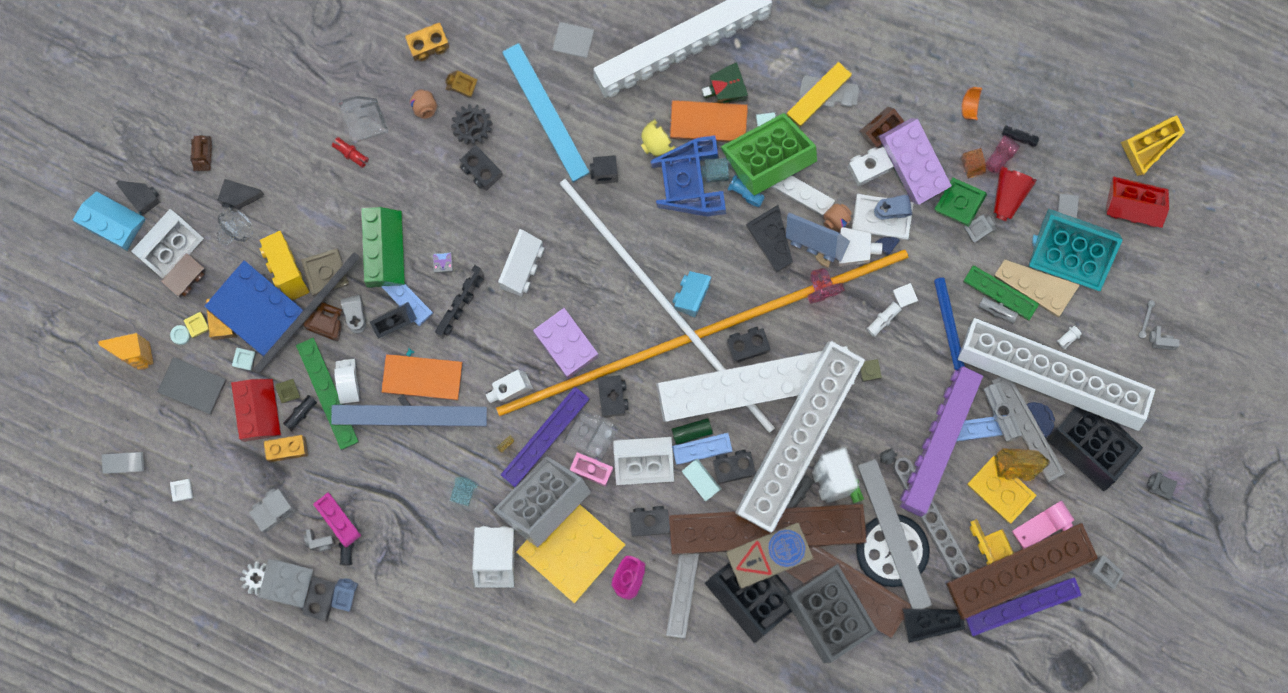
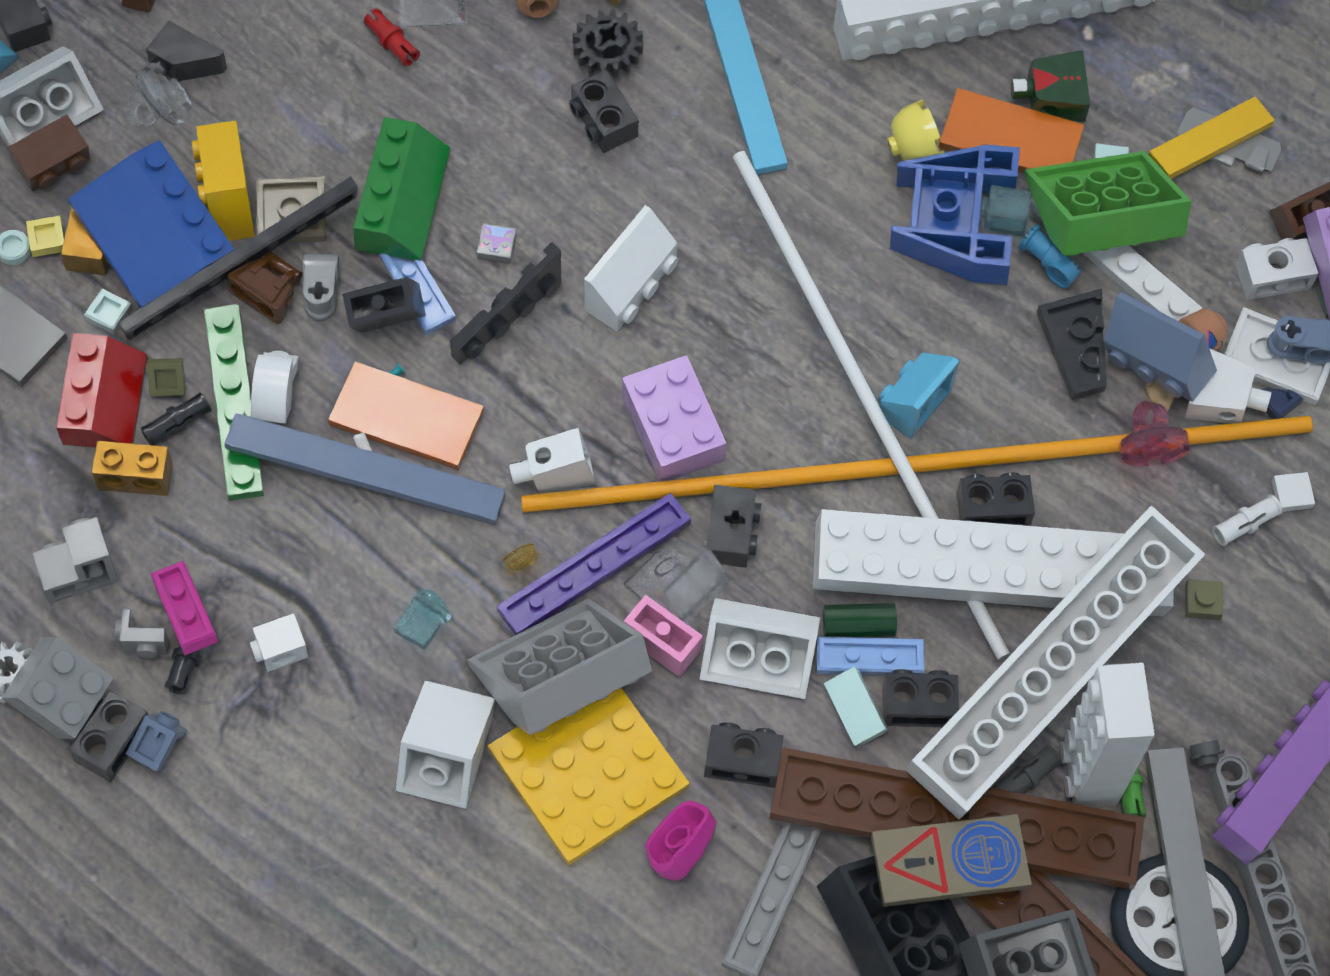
camera: 10 degrees right, 15 degrees down
(392, 525) = (279, 643): none -> white brick
(604, 169) = (814, 159): black brick -> none

